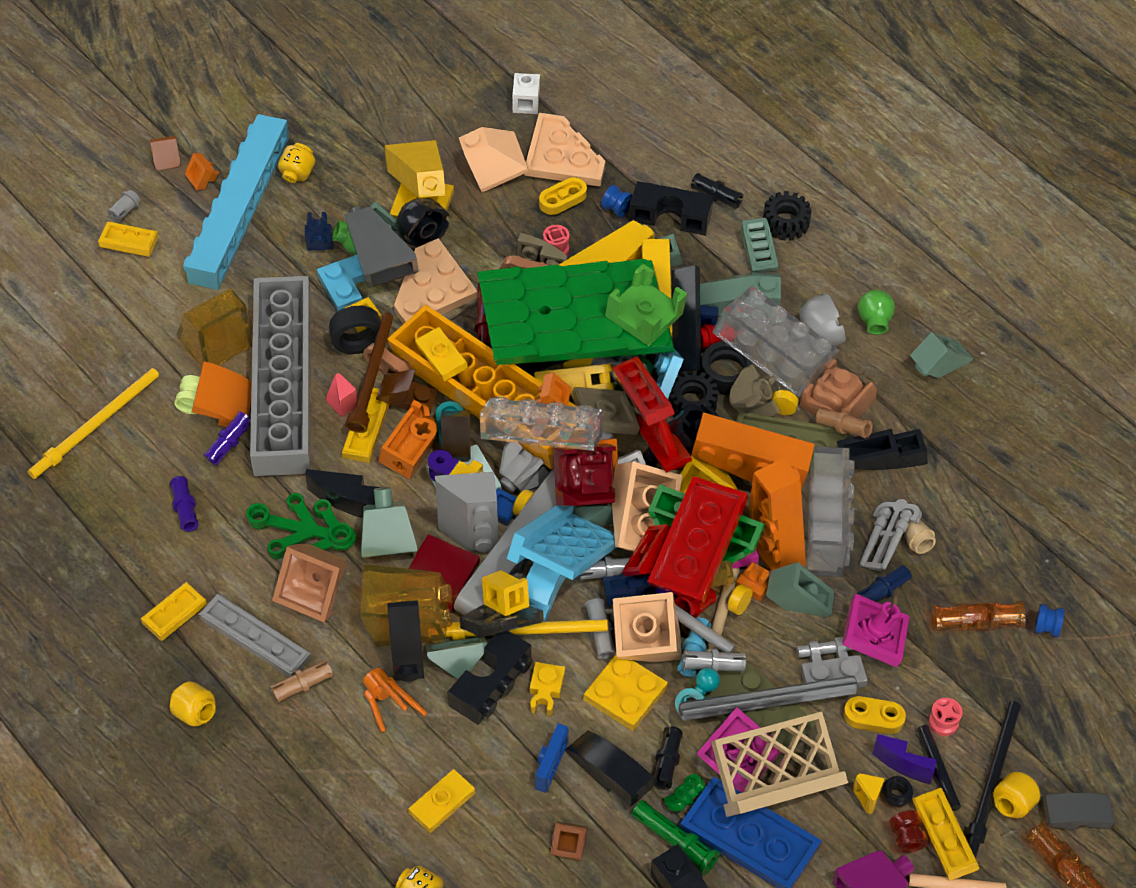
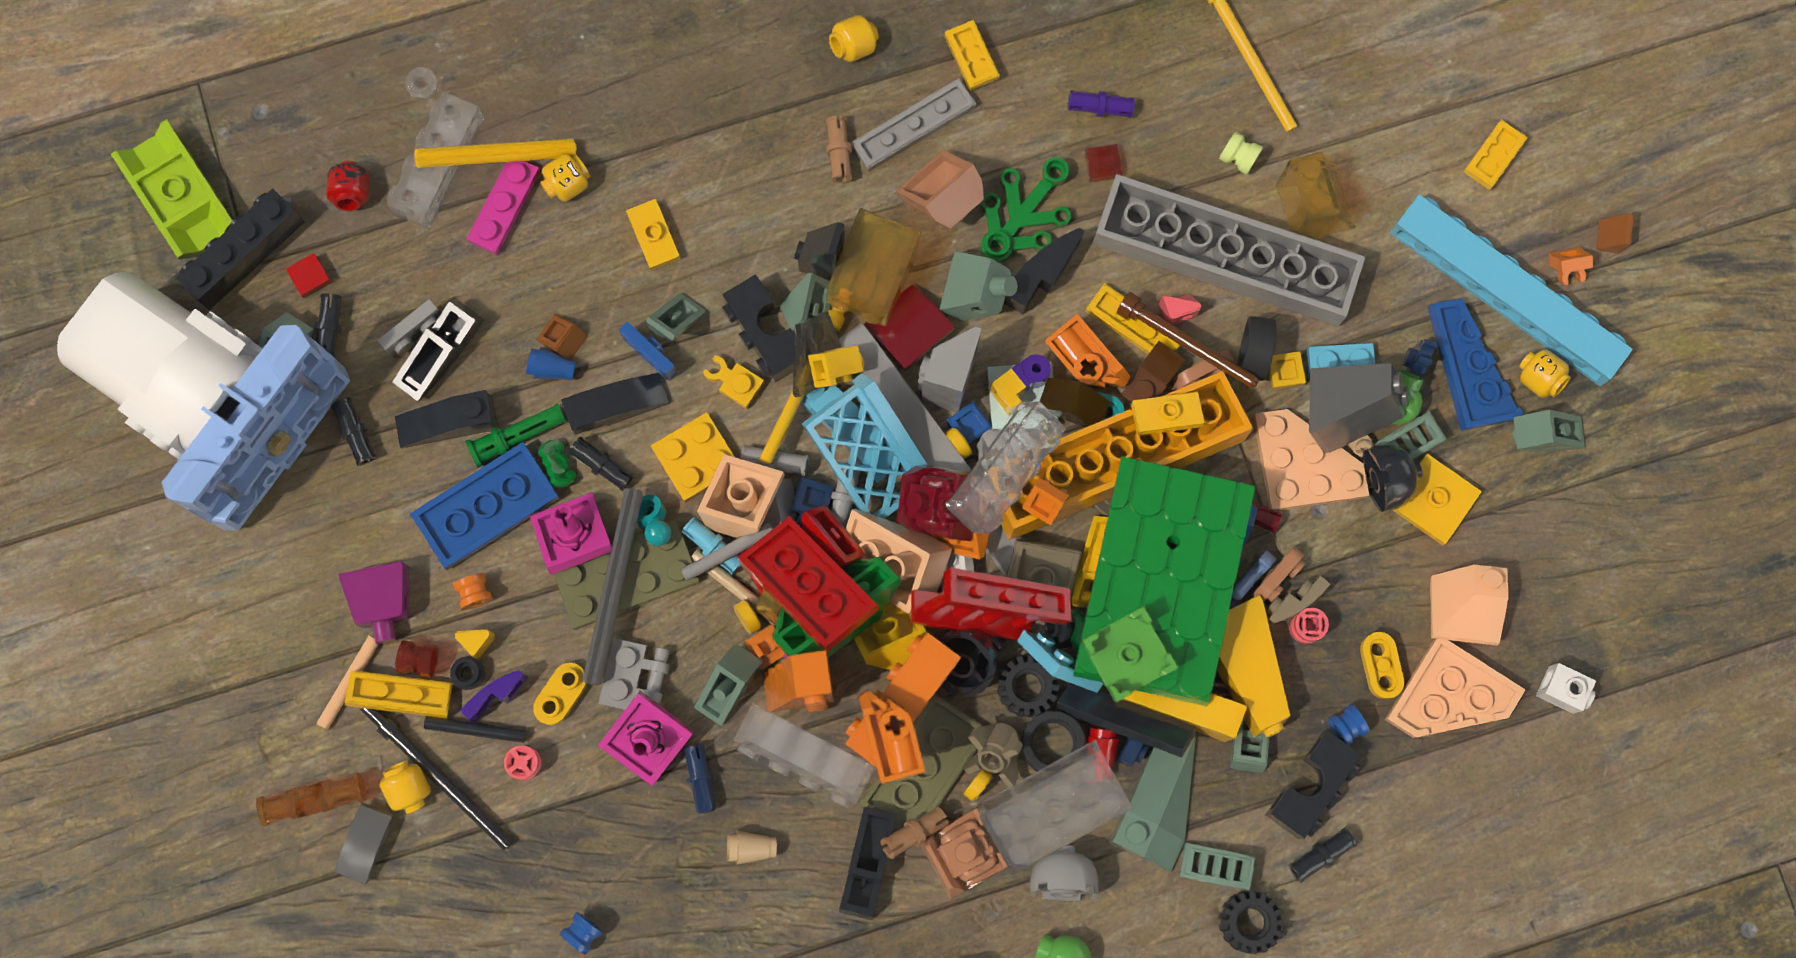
camera: 110 degrees right, 25 degrees up
(128, 201) = (1549, 164): light grey pin -> none
(222, 394) = (1223, 178): orange slope -> none
(228, 438) = (1165, 169): dark purple pin -> none
(235, 488) = (1103, 162): none -> clear red tile
(327, 196) = (1473, 380): none -> blue wing
(342, 151) = (1548, 431): none -> sand green slope
(381, 687) = (799, 217): orange plant -> none
(417, 167) = (1476, 505): yellow slope -> none
(514, 747) = (675, 317): none -> sand green slope
(601, 835) = (548, 365): none -> blue cone
(714, 659) = (676, 548): light grey pin -> none
(777, 791) = (503, 552): tan fence -> none
(792, 431) = (896, 752): none -> orange piece
(828, 811) = (472, 591): none -> orange wheel
(883, 511) = (784, 843): light grey piece -> none
(975, 615) = (622, 855): clear orange piece -> none

